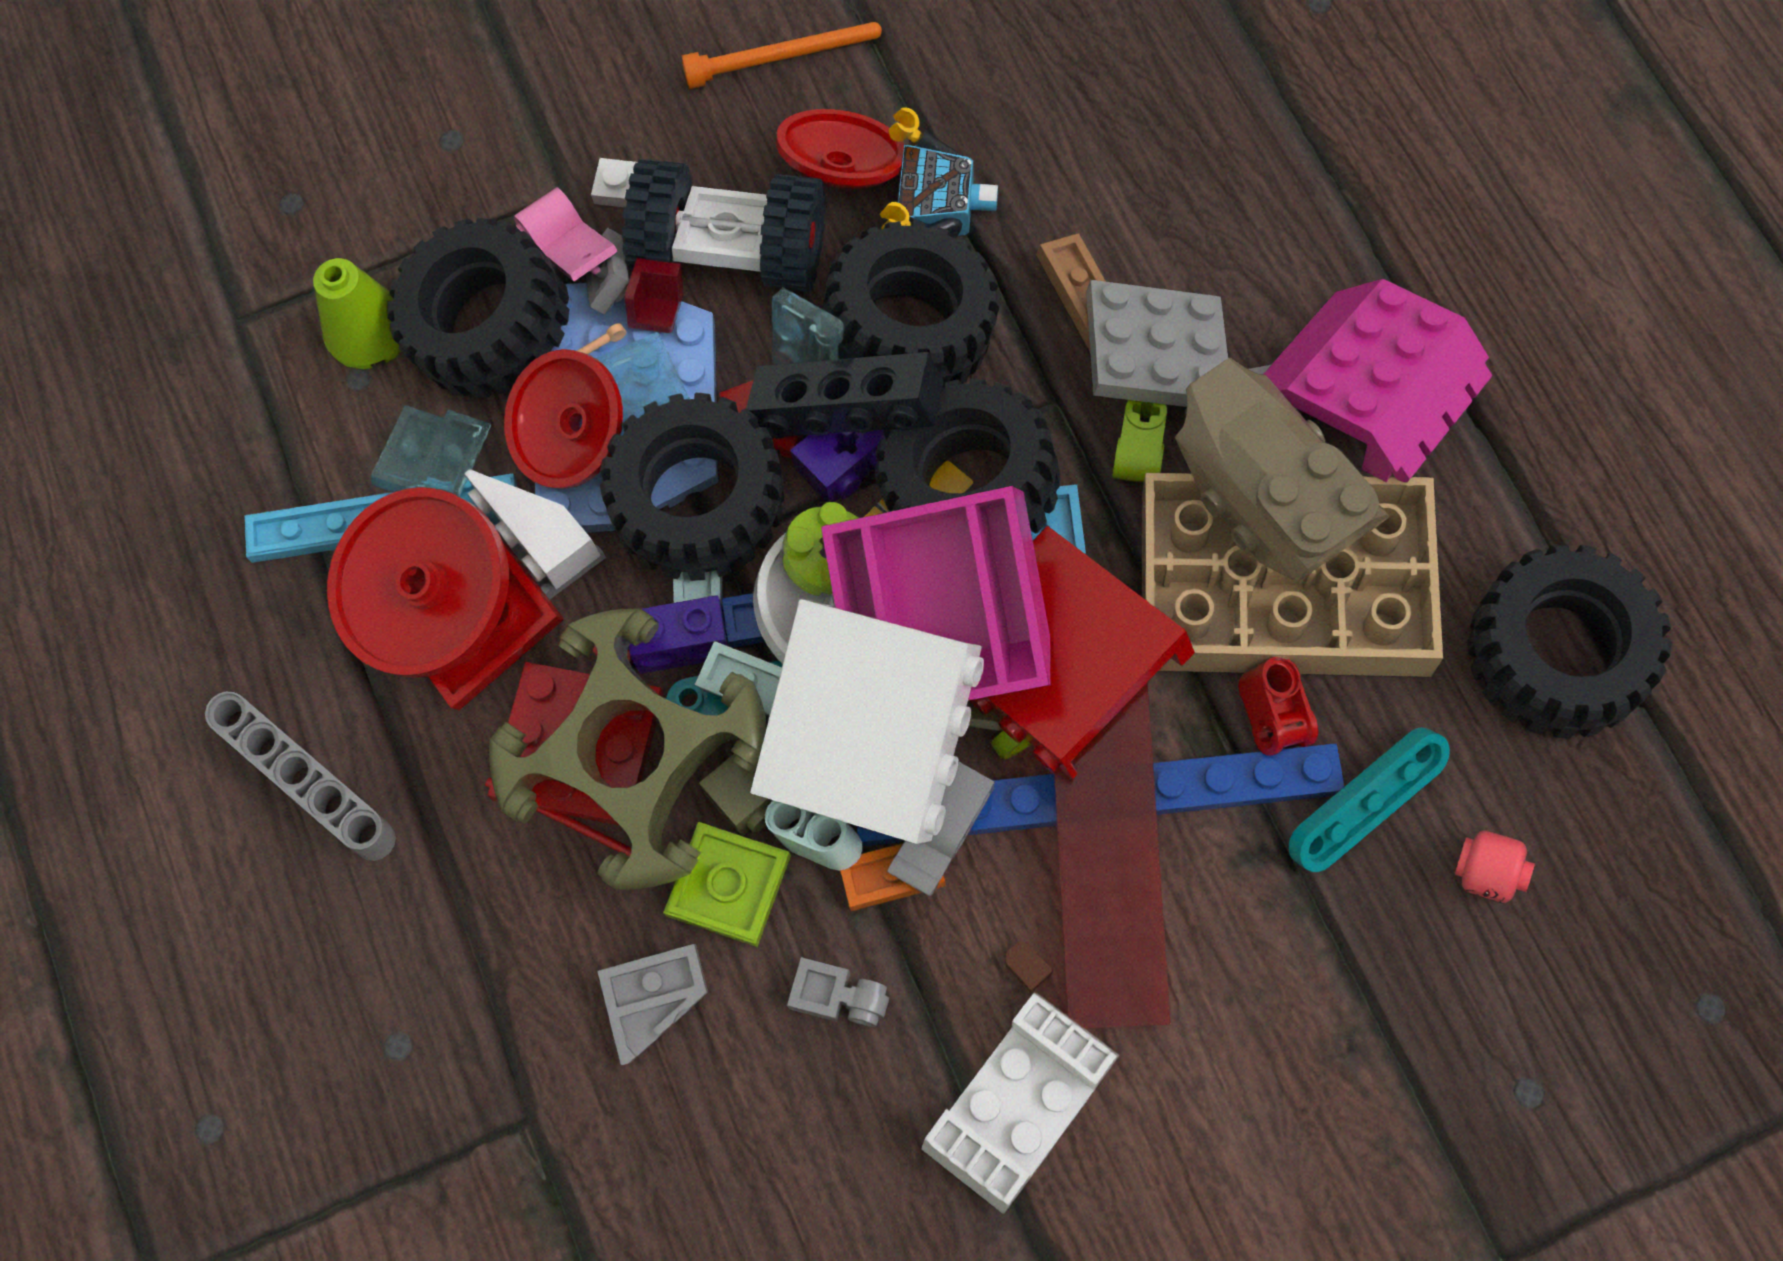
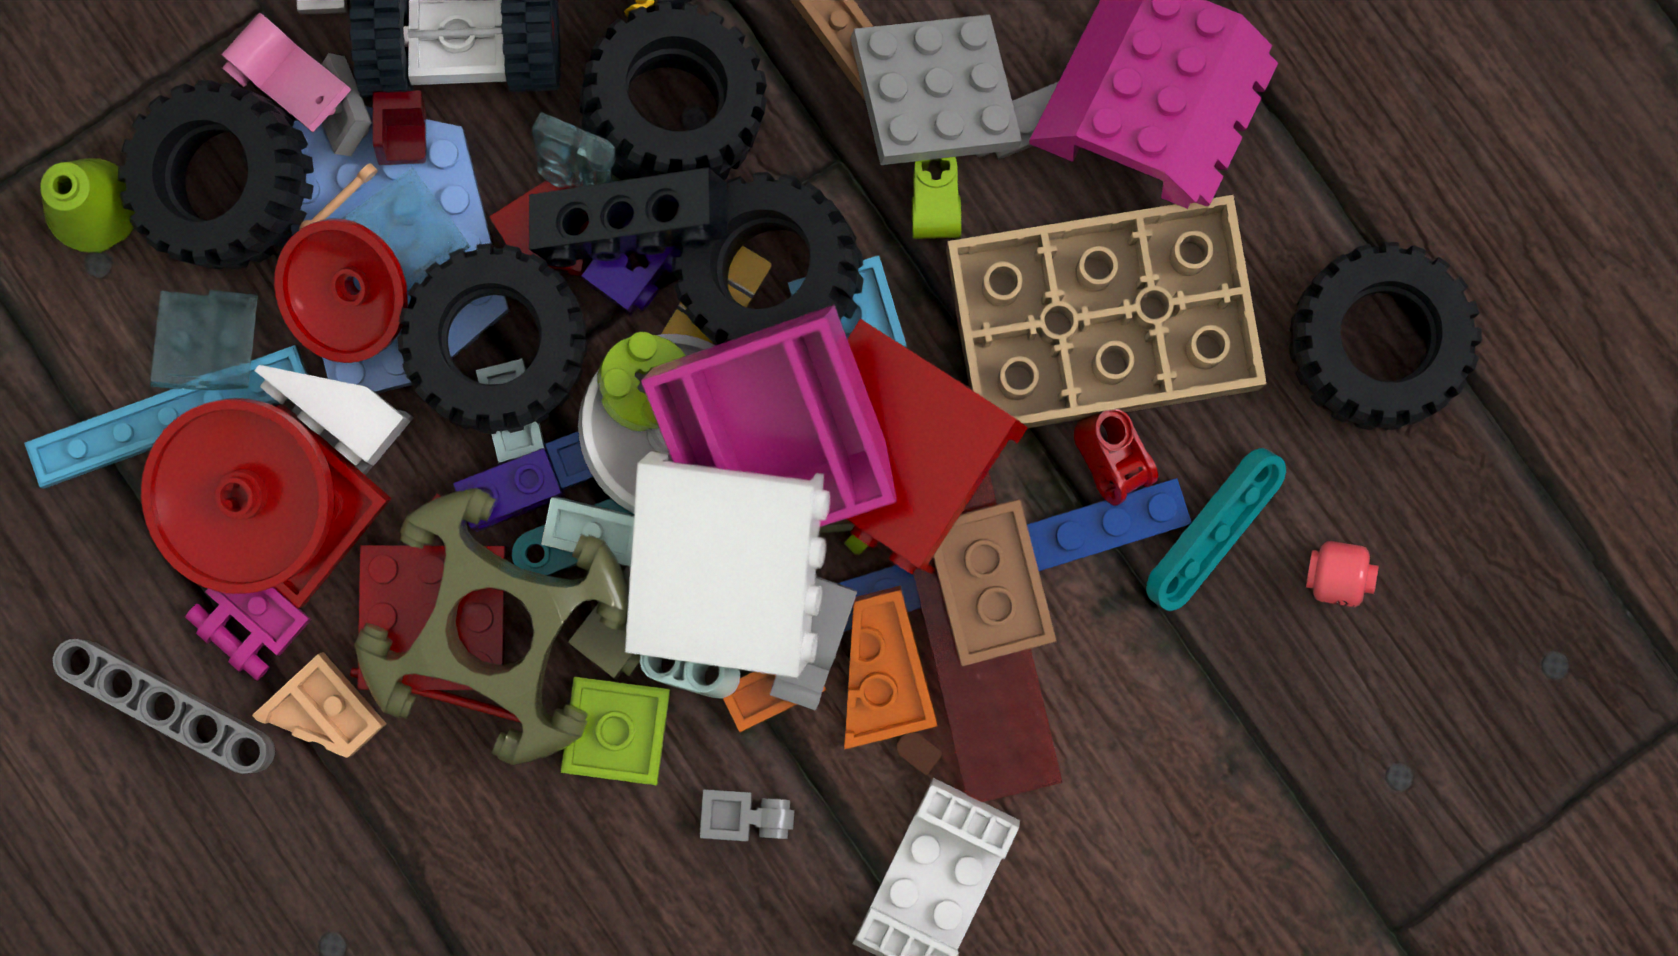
camera: 20 degrees left, 15 degrees up
(415, 702) = (263, 613): none -> dark pink plate
(449, 807) = (323, 708): none -> light nougat wing
(650, 997) = (566, 853): light grey wing -> none
(1008, 875) = (885, 672): none -> orange wing
(1132, 799) = (992, 584): none -> medium nougat plate
(1272, 473) = (1076, 231): dark tan slope -> none

